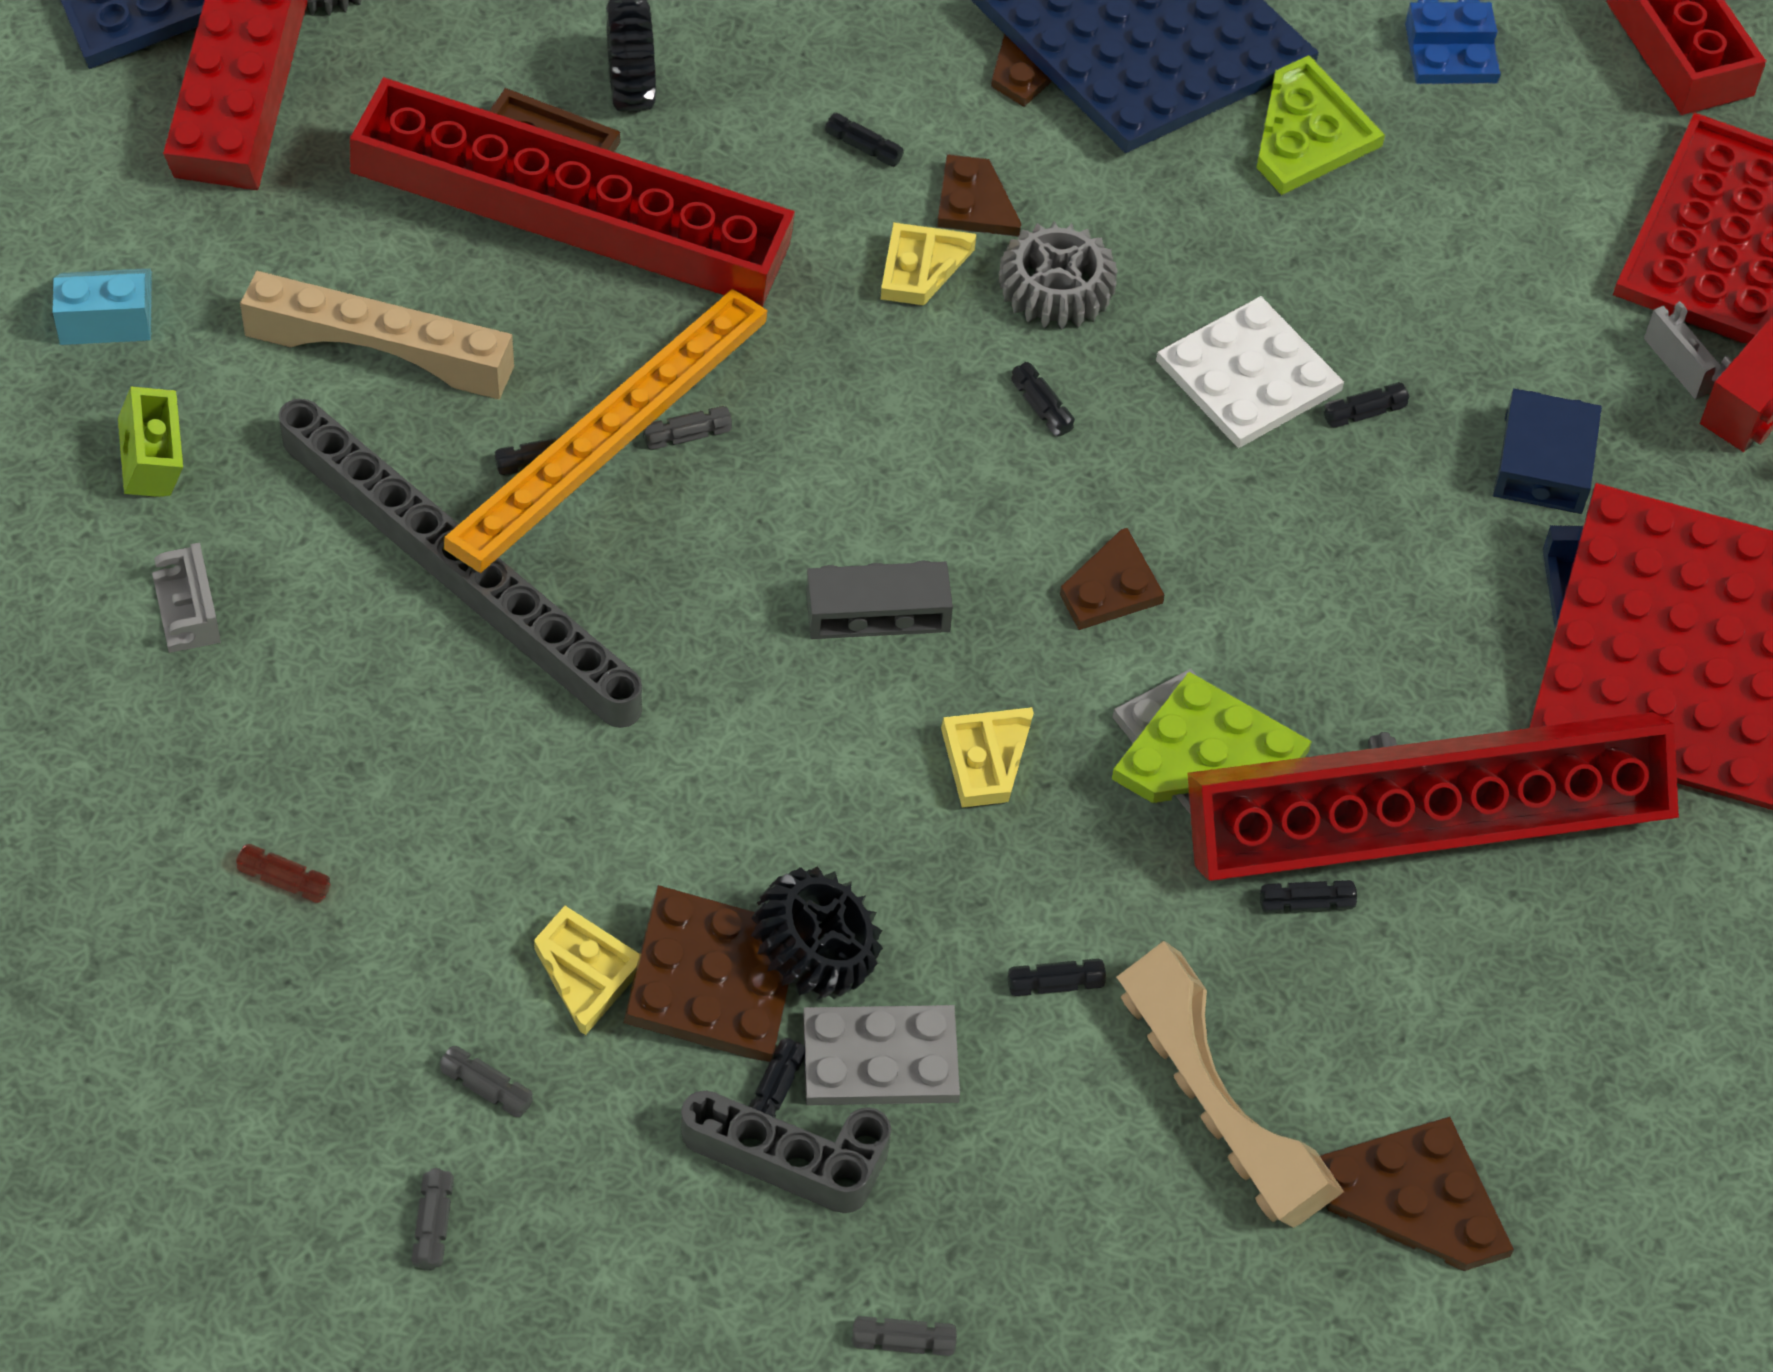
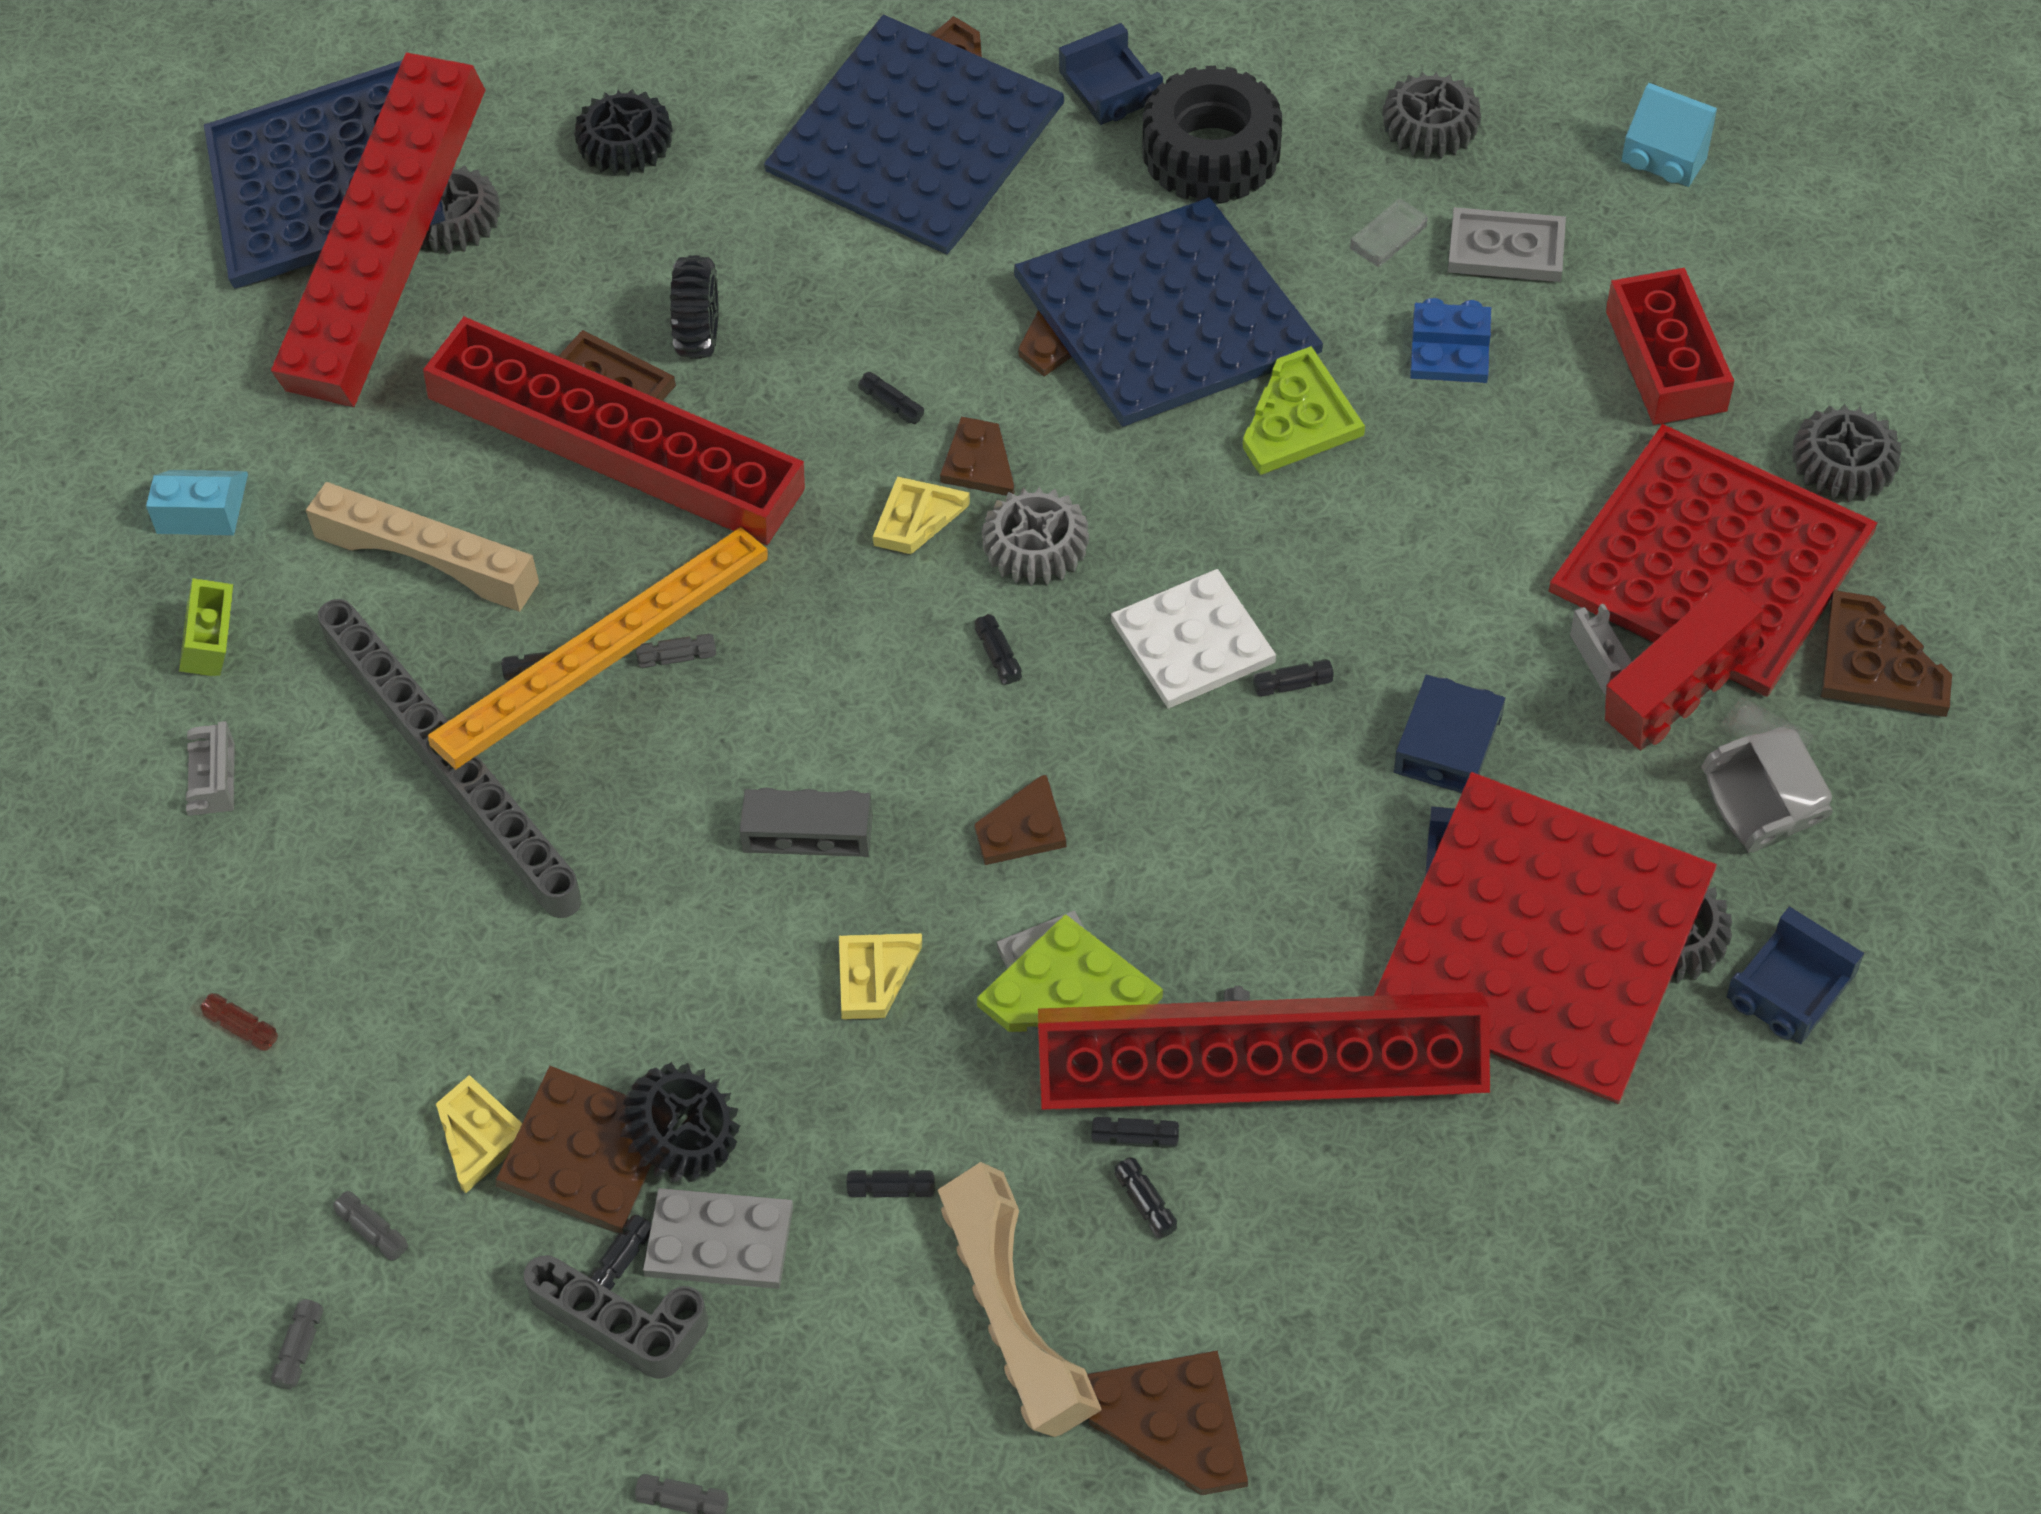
camera: 15 degrees right, 0 degrees up
(1335, 964) = (1145, 1197): none -> black axle

